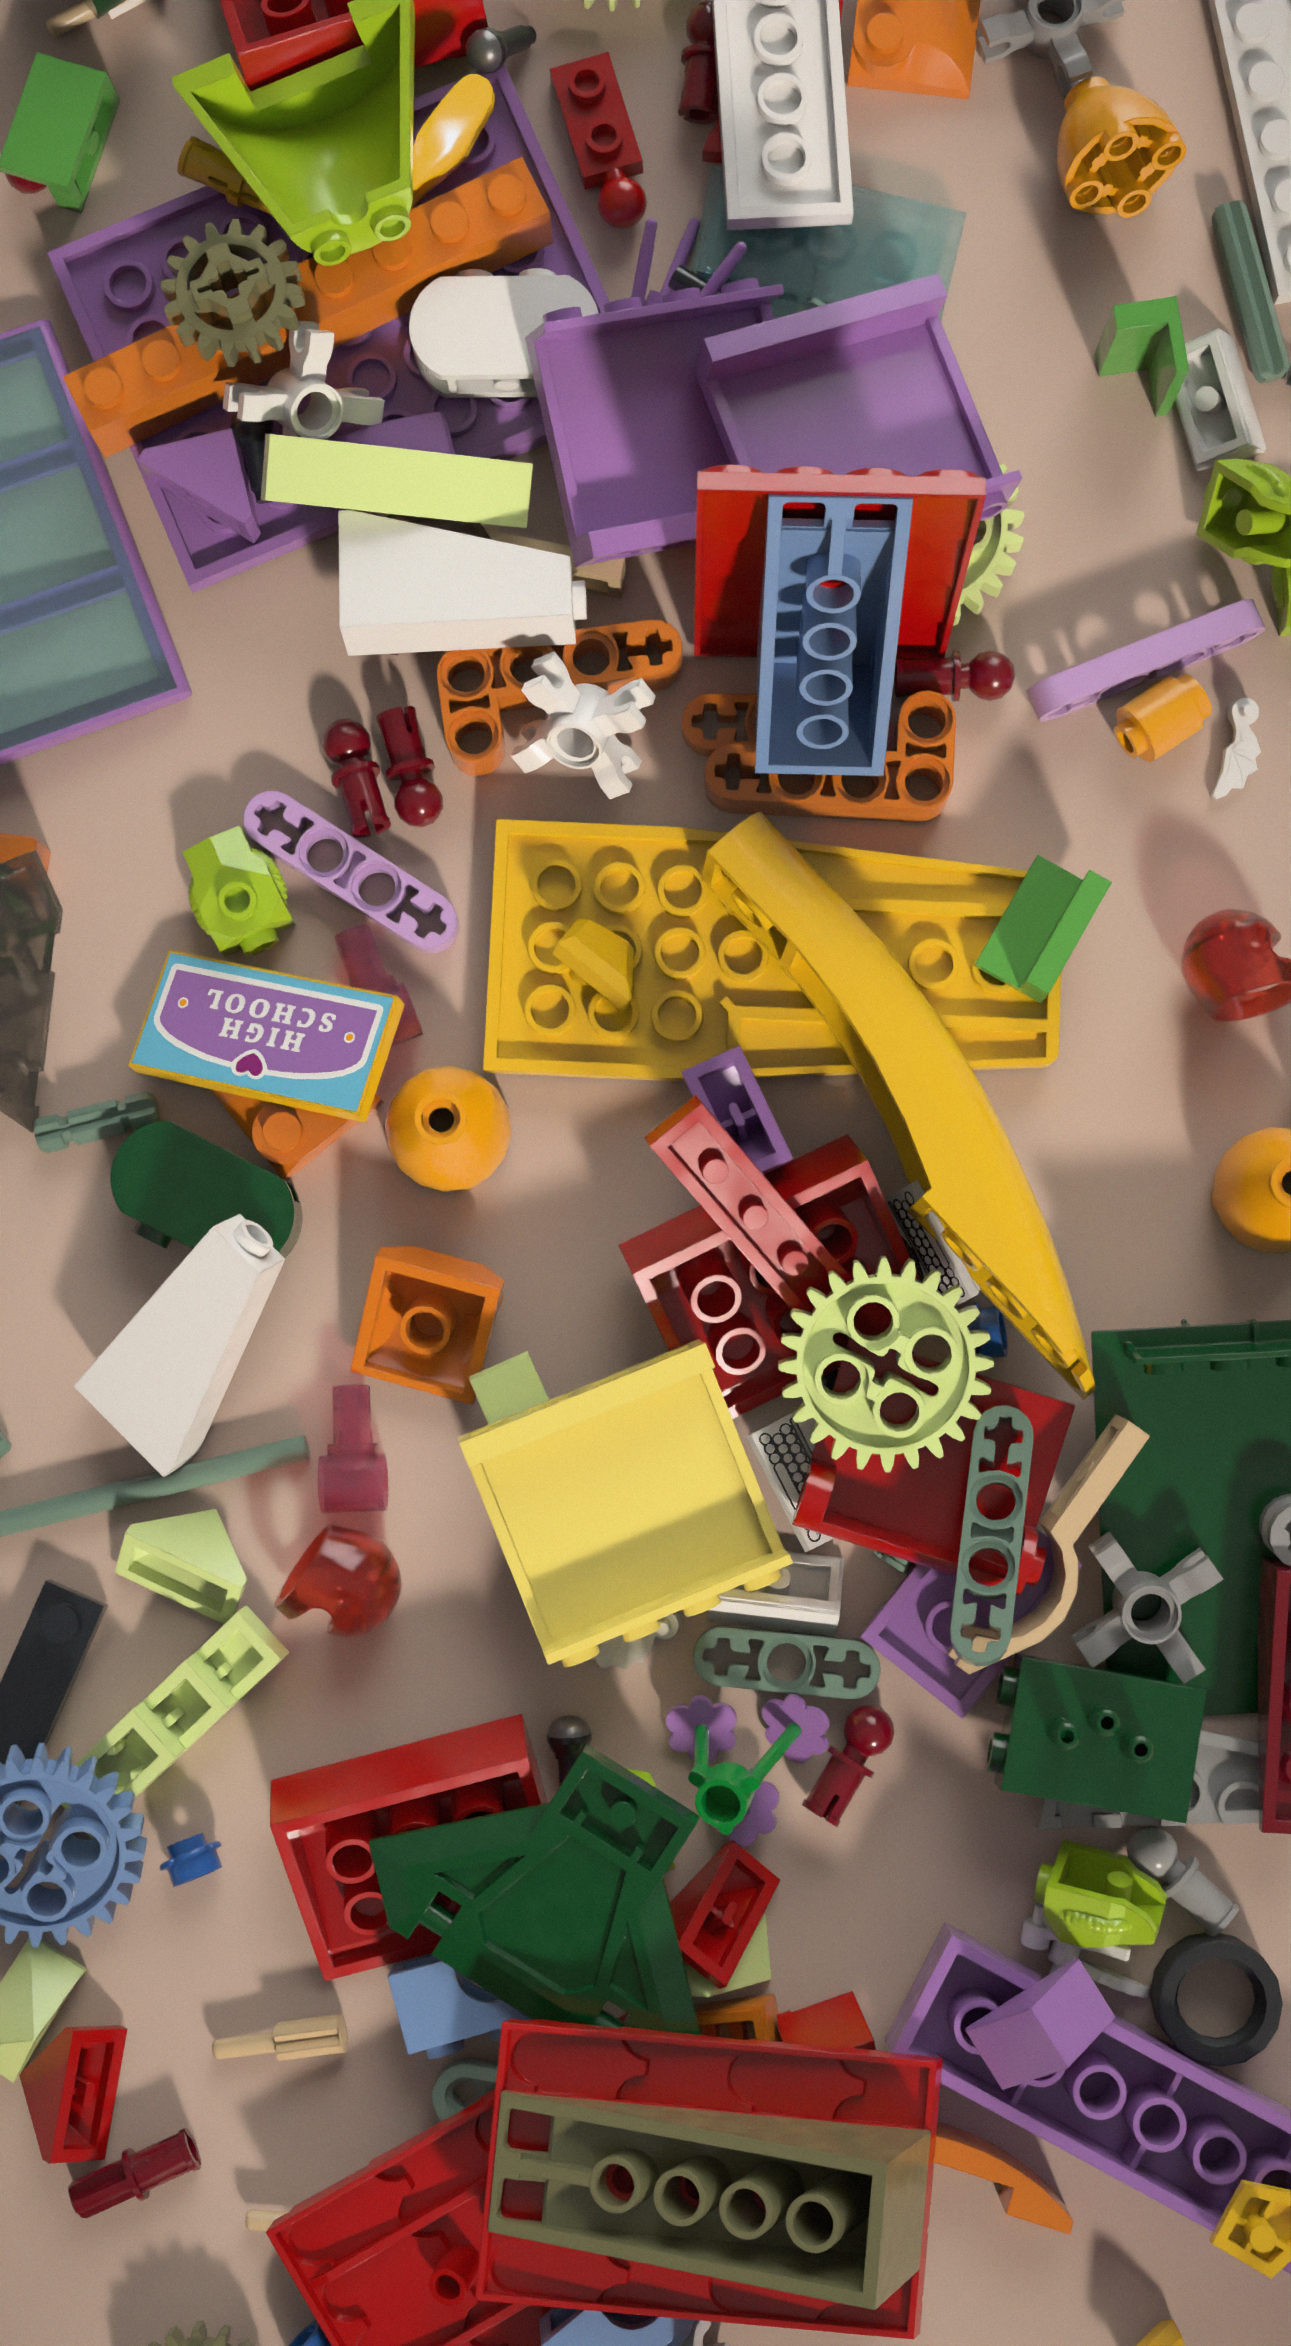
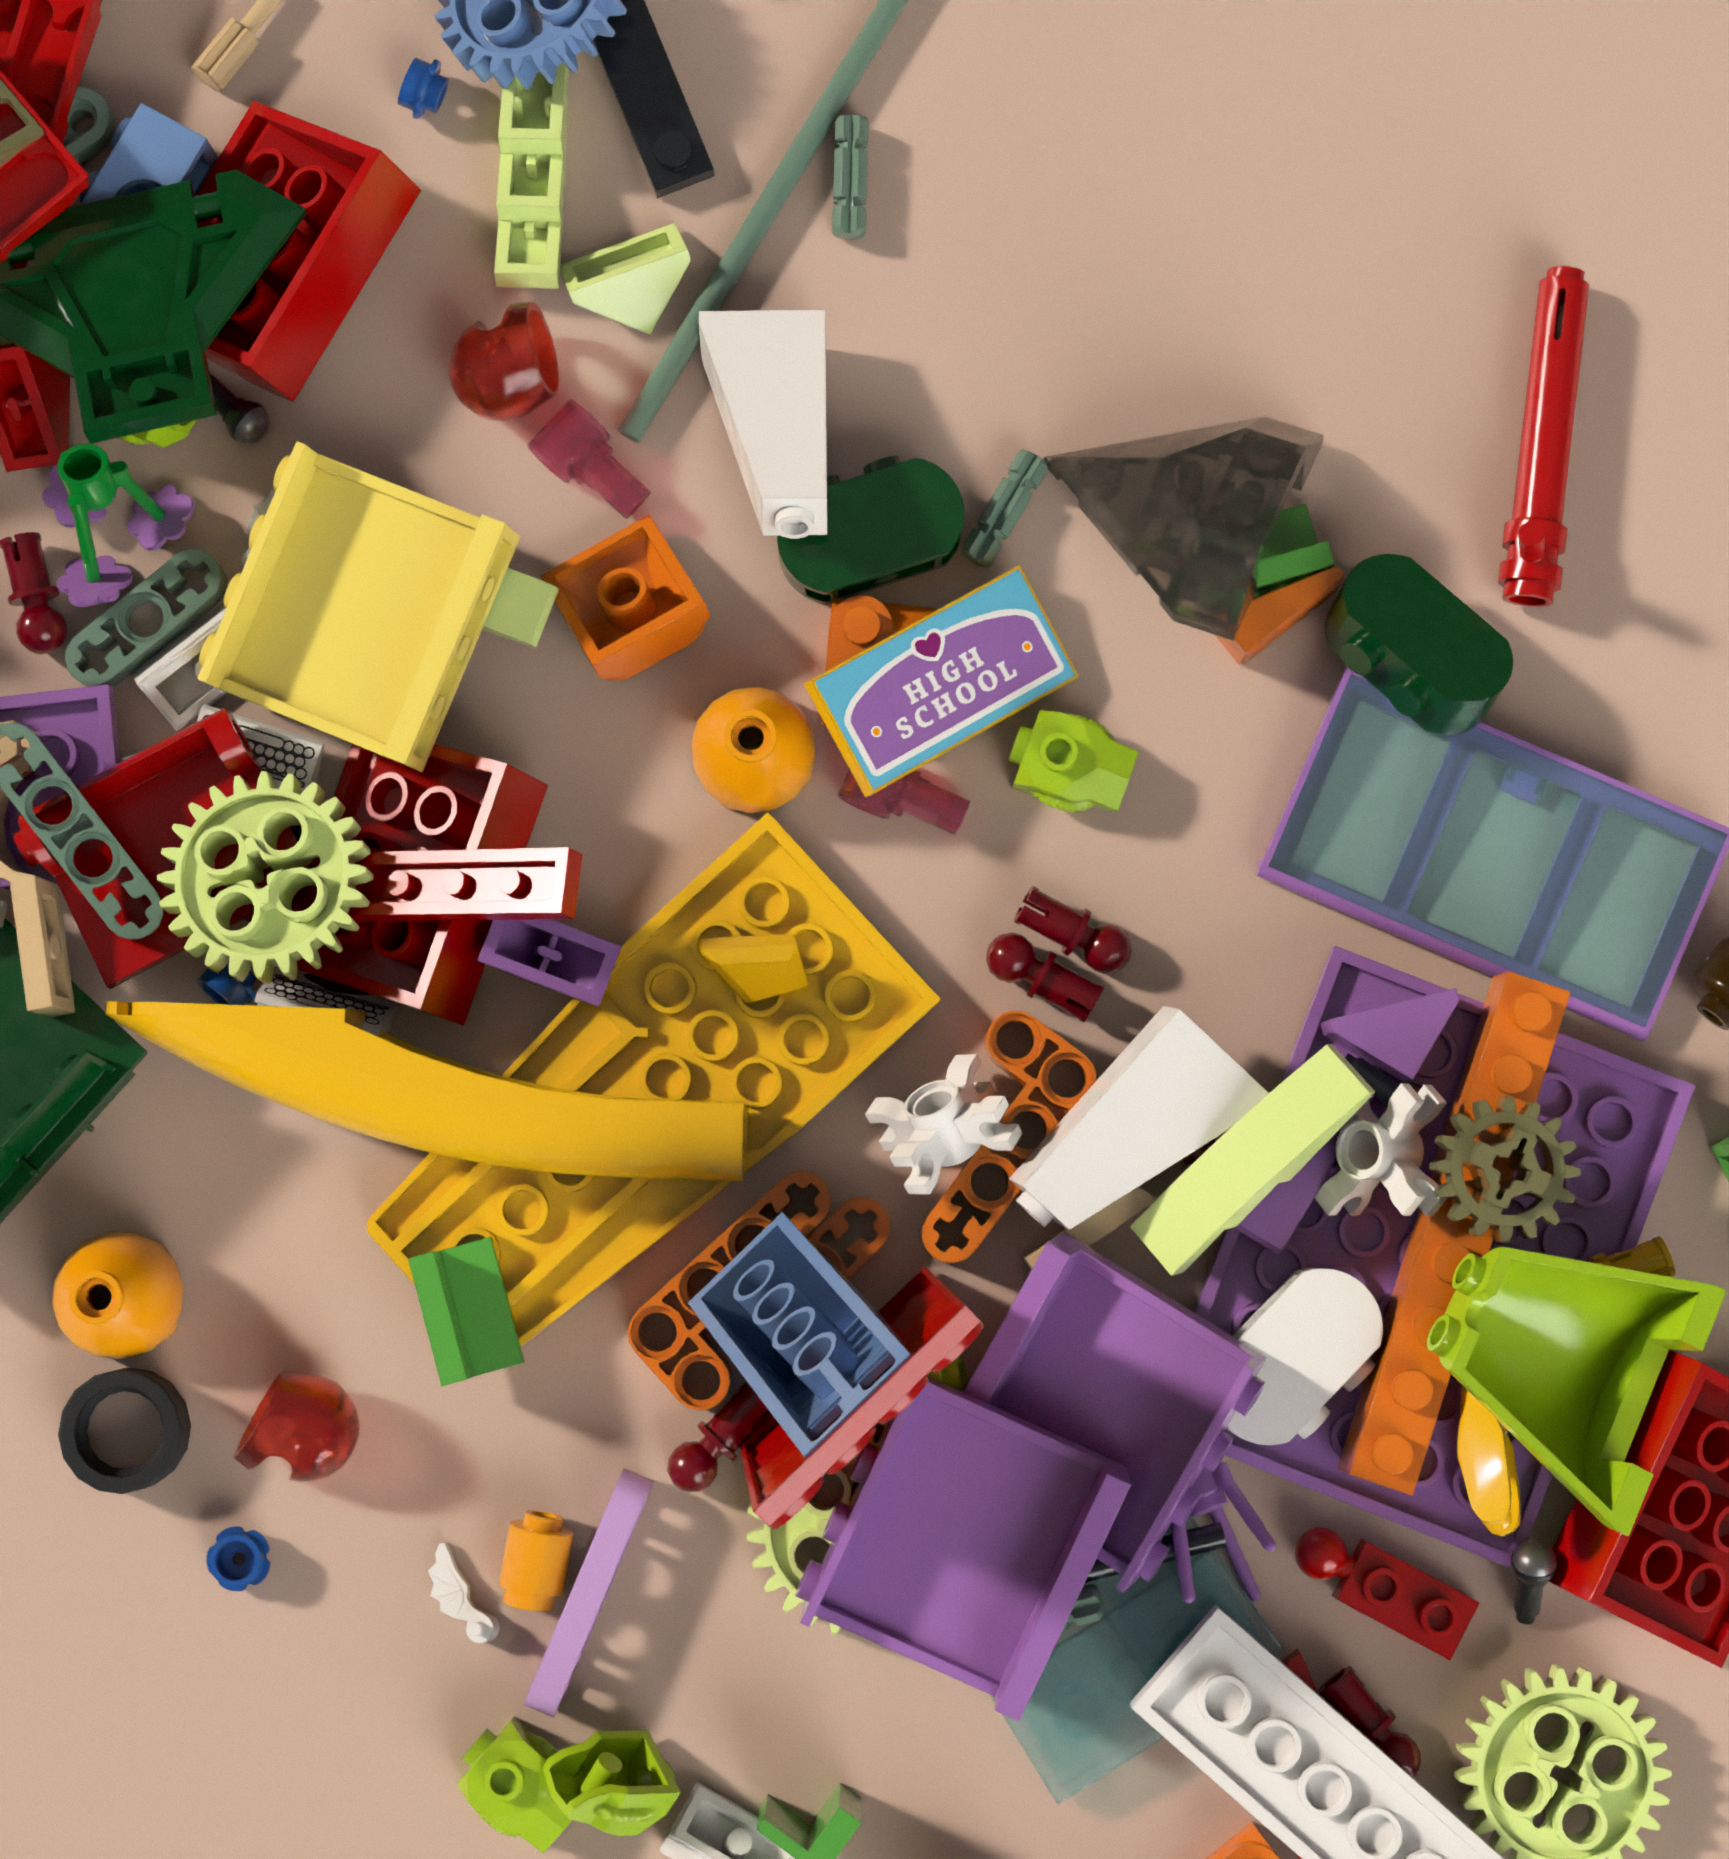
camera: 125 degrees right, 0 degrees up
(355, 867) = (1006, 852): lavender beam -> none

